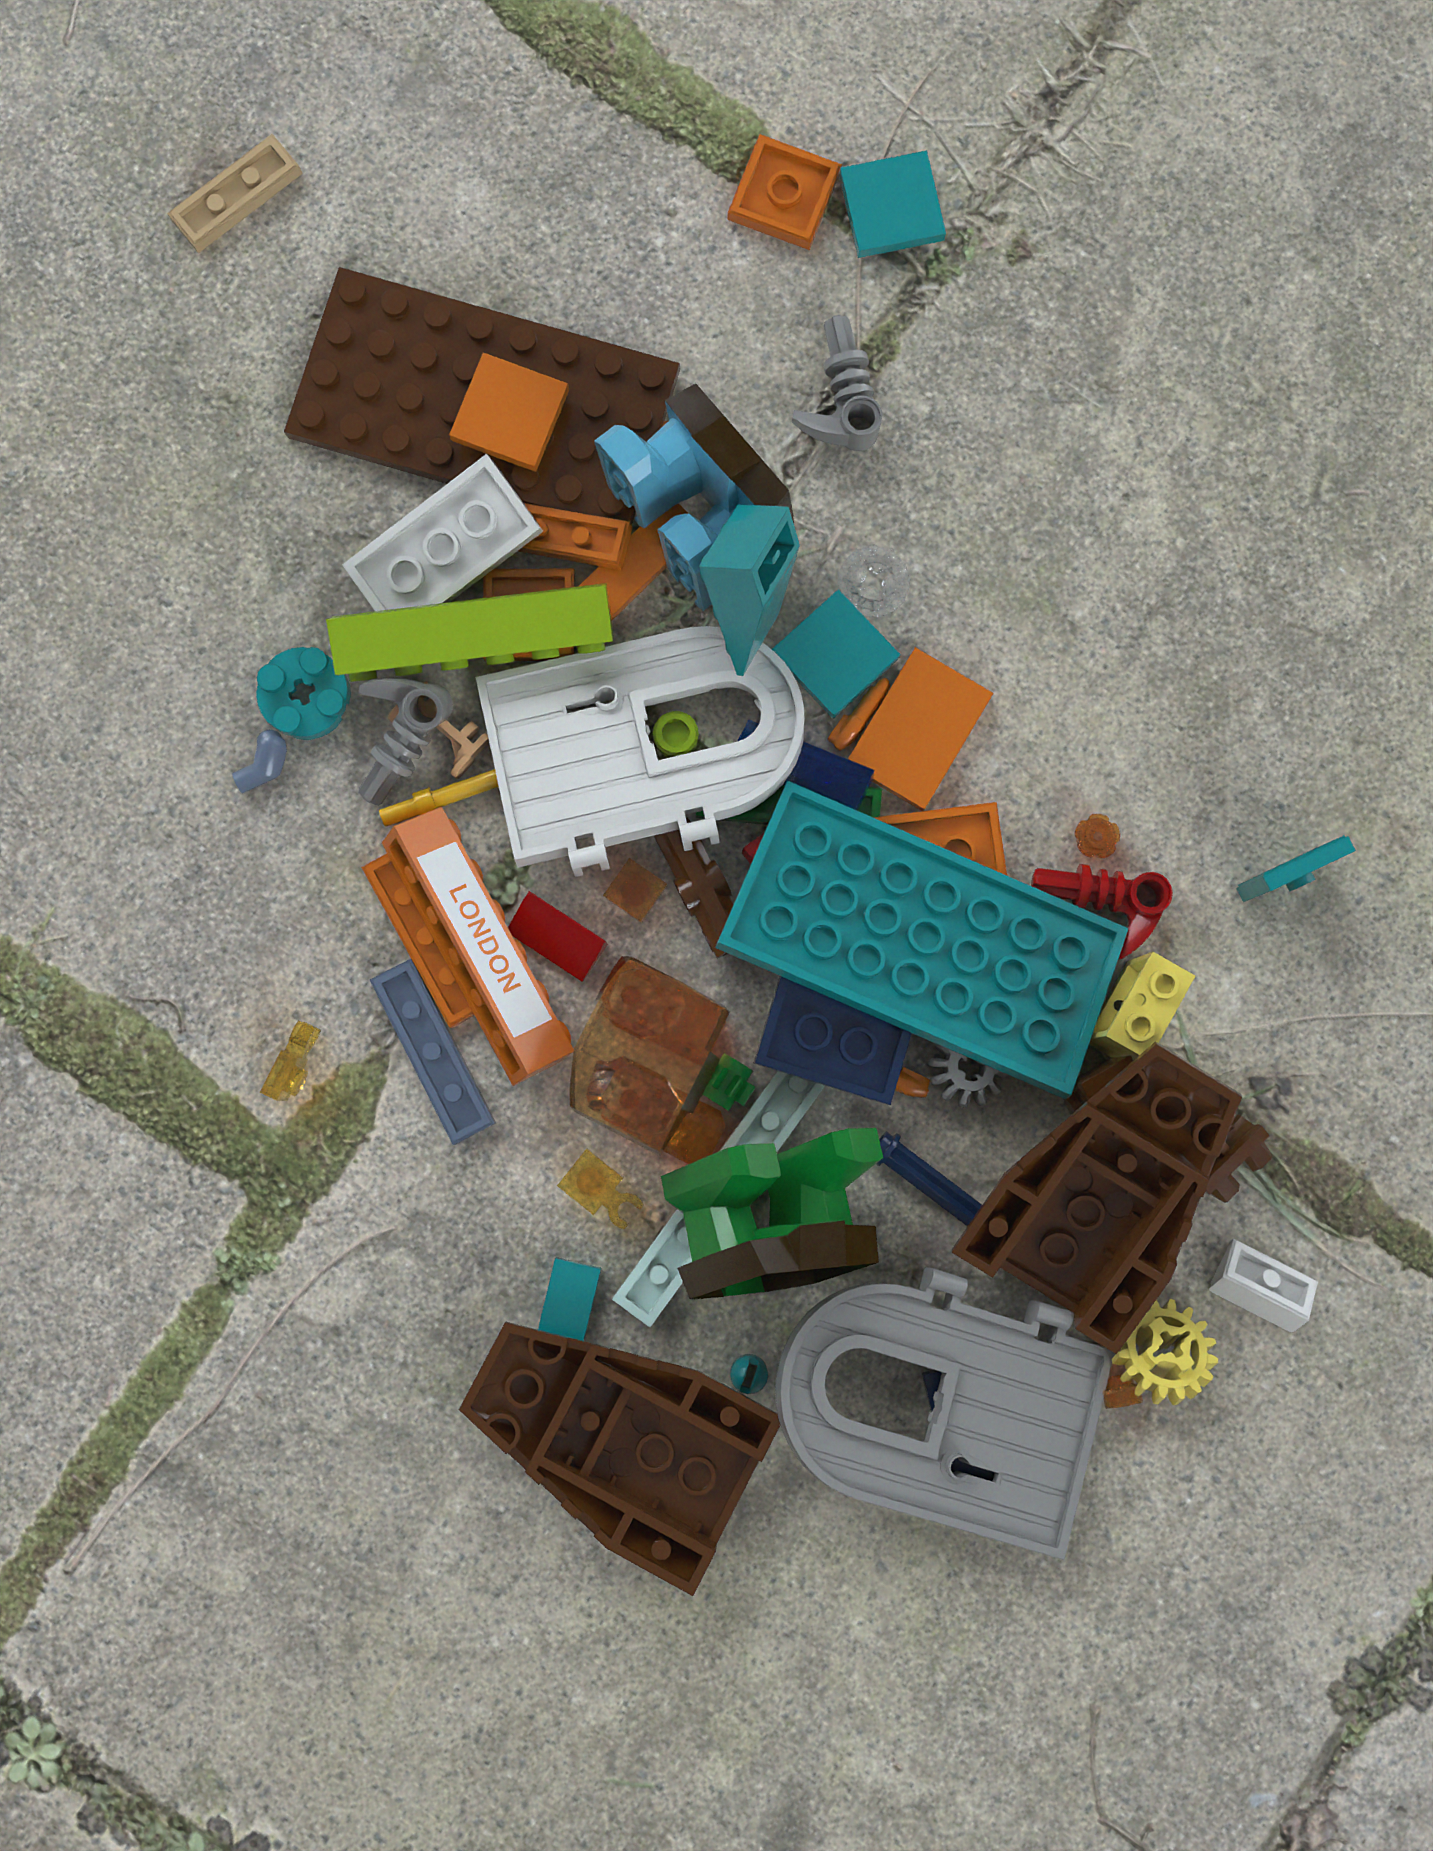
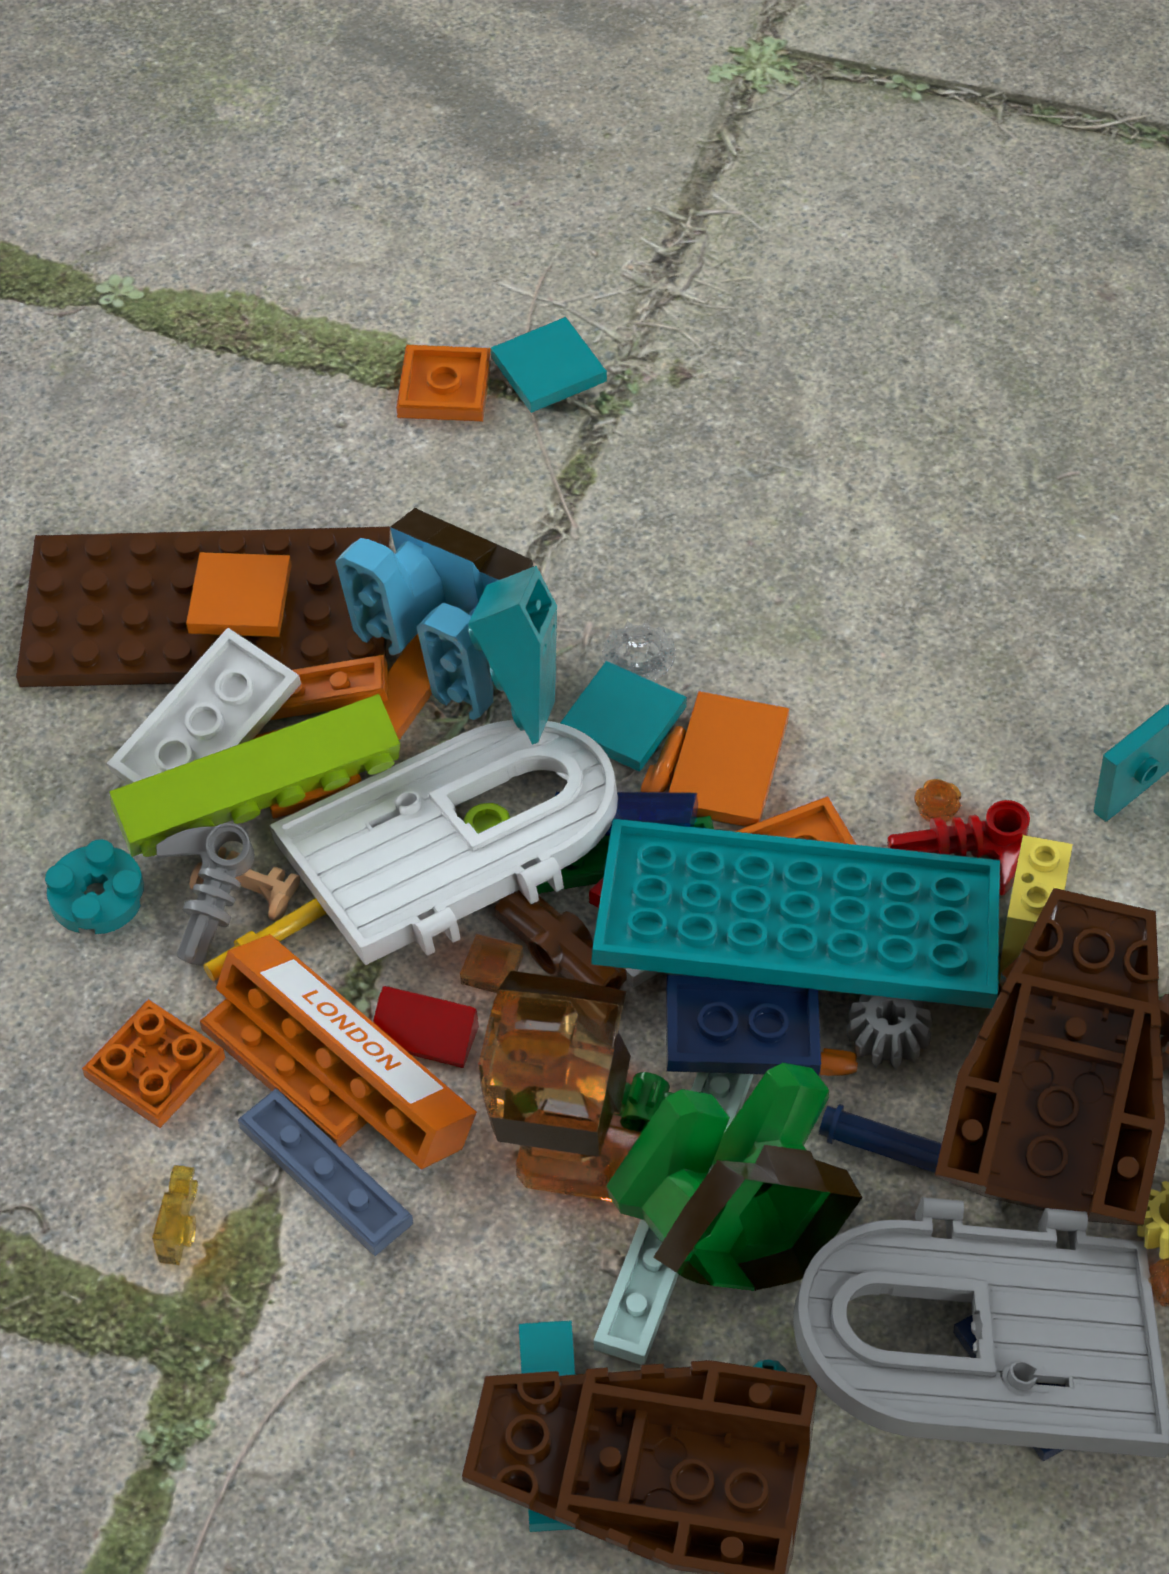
camera: 15 degrees left, 30 degrees down
(267, 762) = (74, 958): sand blue arm -> none
(312, 895) = (154, 1063): none -> orange tile
(594, 1184) = (541, 1240): clear yellow plate -> none
(852, 396) = (573, 521): light grey piece -> none

